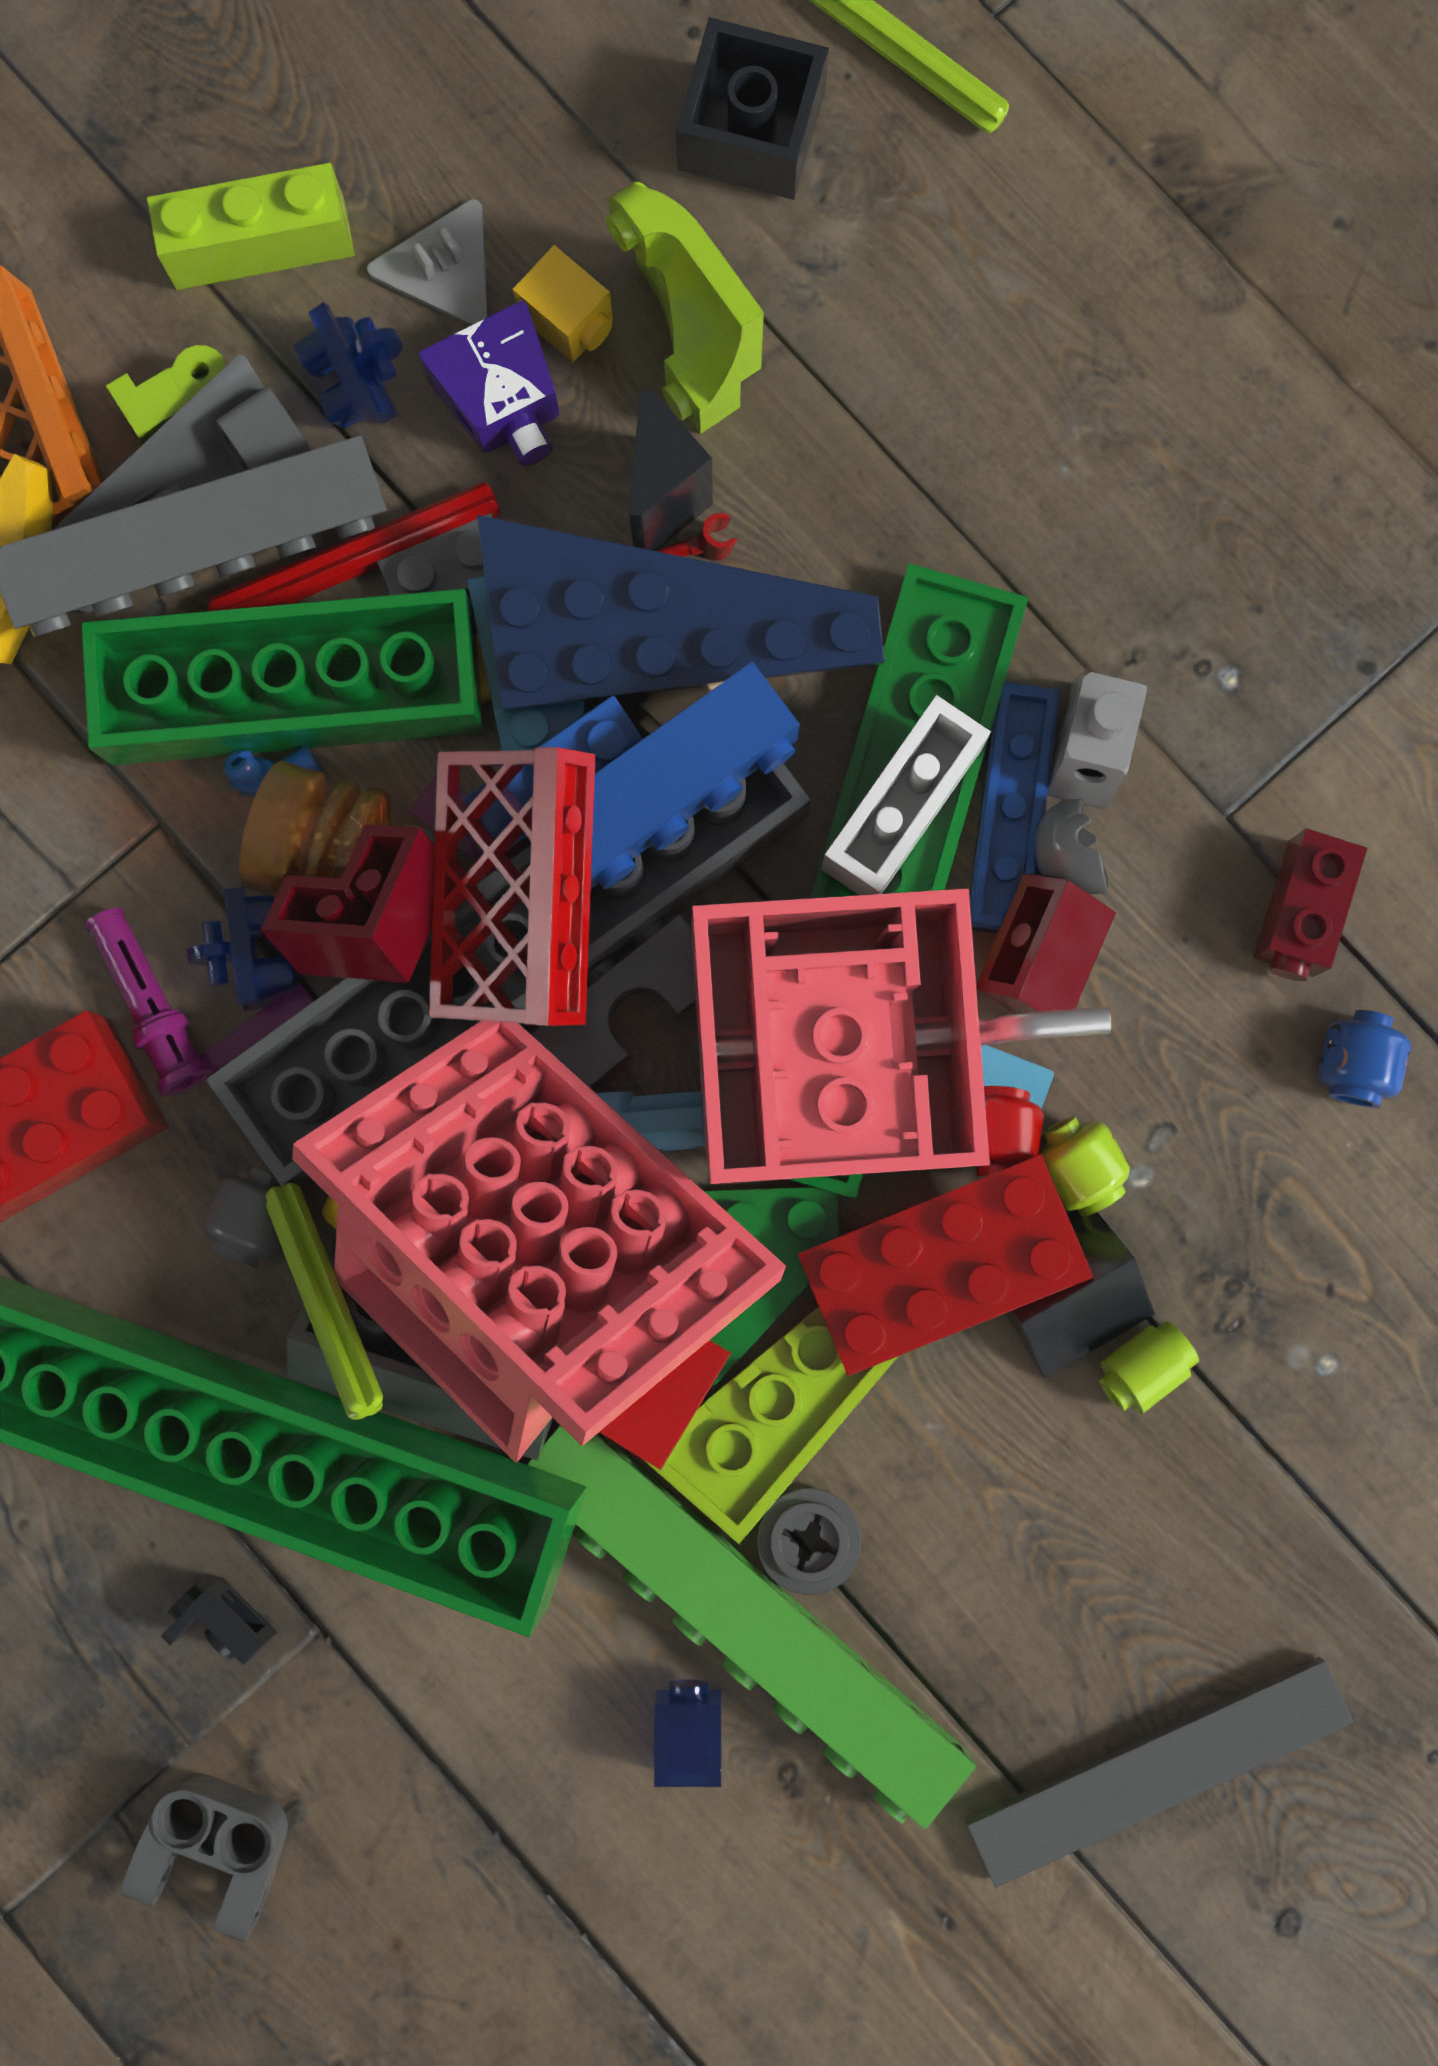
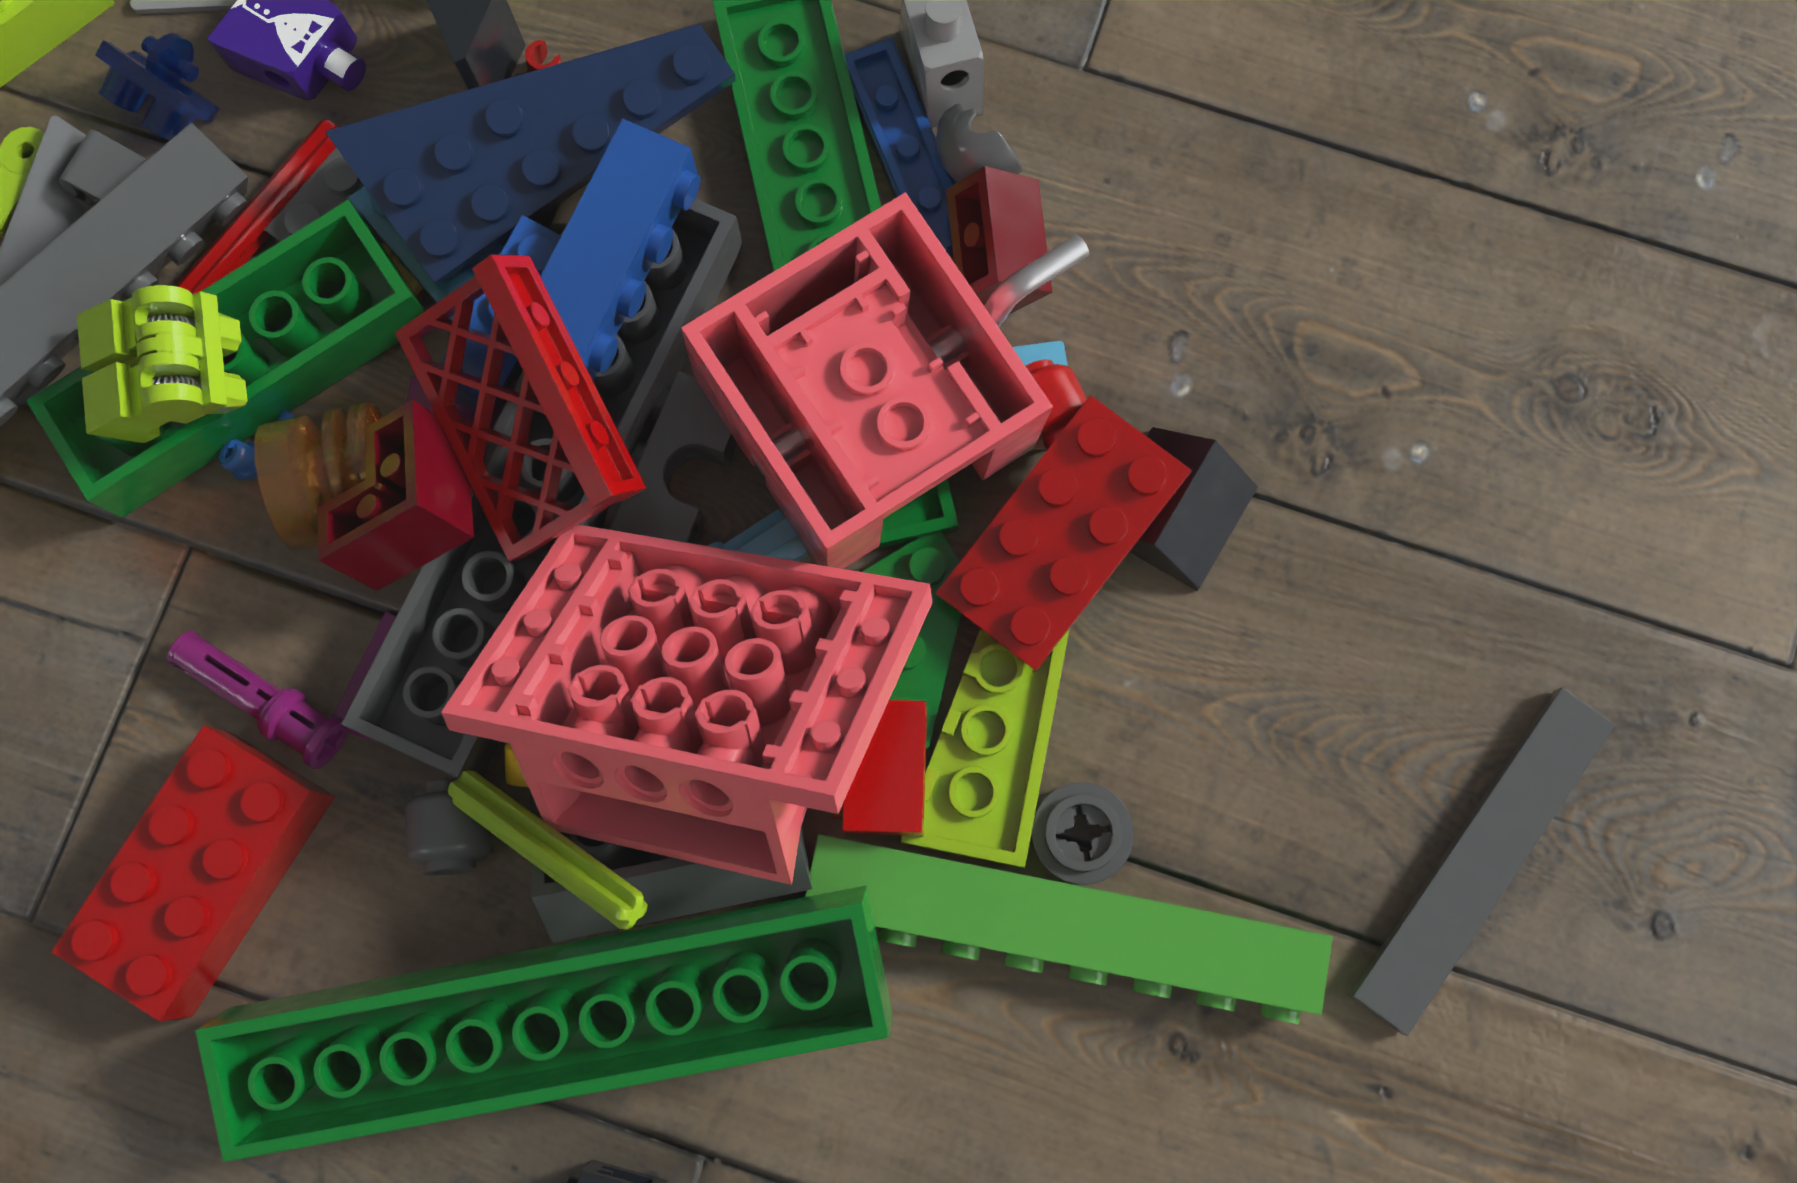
camera: 30 degrees left, 5 degrees down
(217, 663) = (156, 362): none -> lime hips
(254, 977) = (343, 623): clear blue hips -> none
(687, 1735) = (1075, 1056): clear blue brick -> none
(905, 799) = (813, 163): white brick -> none
(1085, 1164) = (1132, 391): lime head -> none
(1148, 1367) = (1278, 530): lime brick -> none
(1309, 905) = (1189, 94): dark red brick -> none
(1364, 1059) = (1304, 192): blue head -> none

